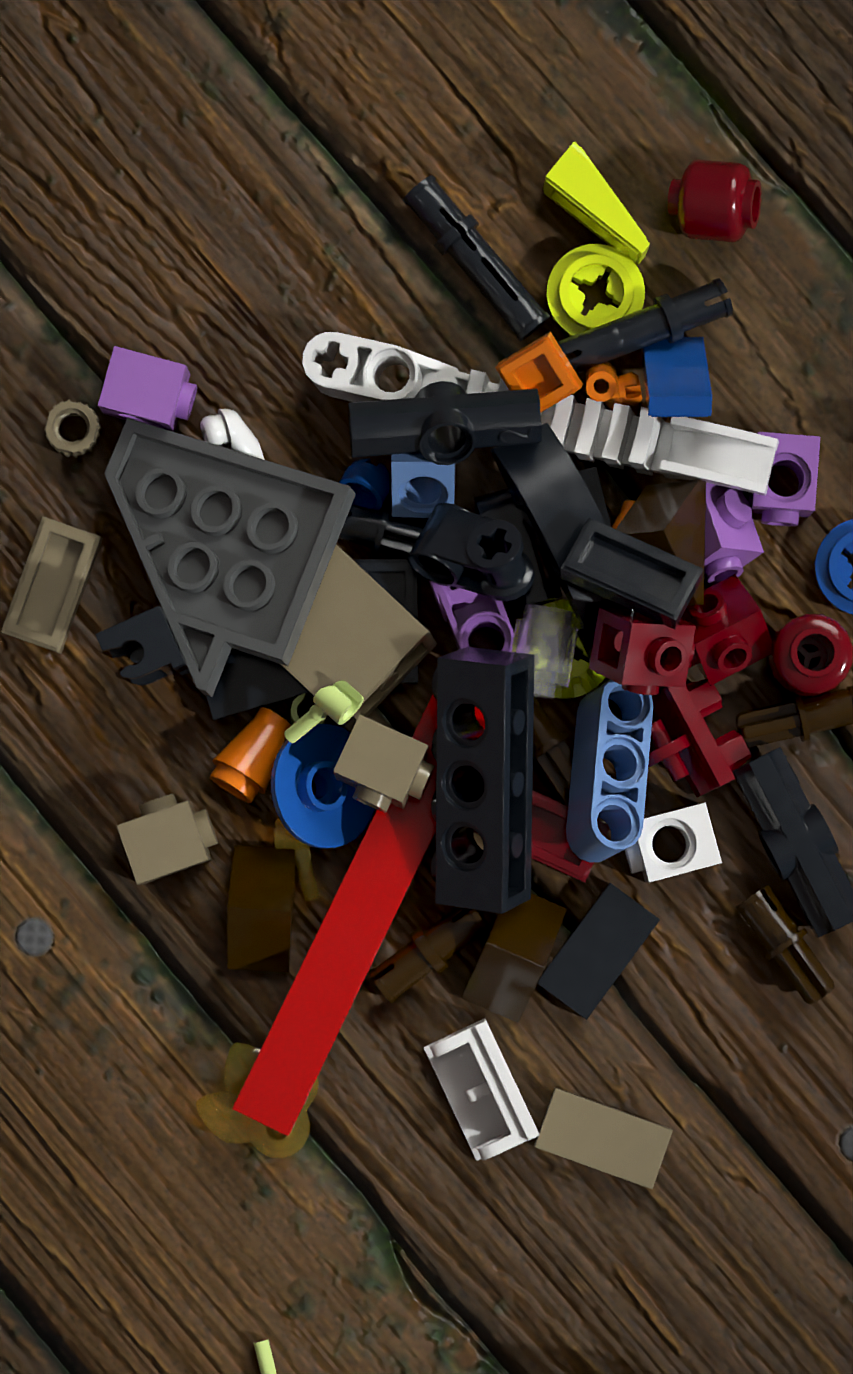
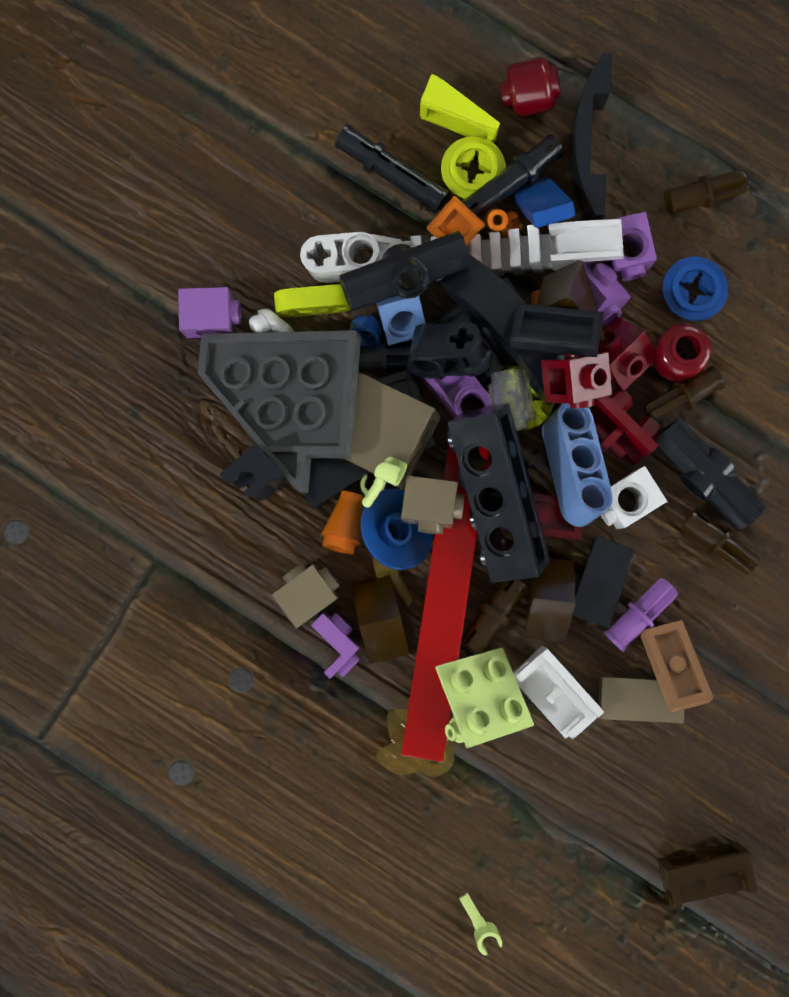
camera: 10 degrees left, 0 degrees up
(51, 585) = (185, 454): dark tan tile -> none
(59, 414) = (162, 341): dark tan axle -> none
(193, 909) = (336, 633): none -> medium lavender bracket
(297, 417) = (310, 301): none -> neon yellow beam
(373, 1063) = (483, 698): none -> yellowish green hinge
(640, 1015) = (641, 614): none -> medium lavender axle
(664, 1103) = (676, 666): none -> medium nougat plate
(752, 374) = (589, 188): none -> black slope

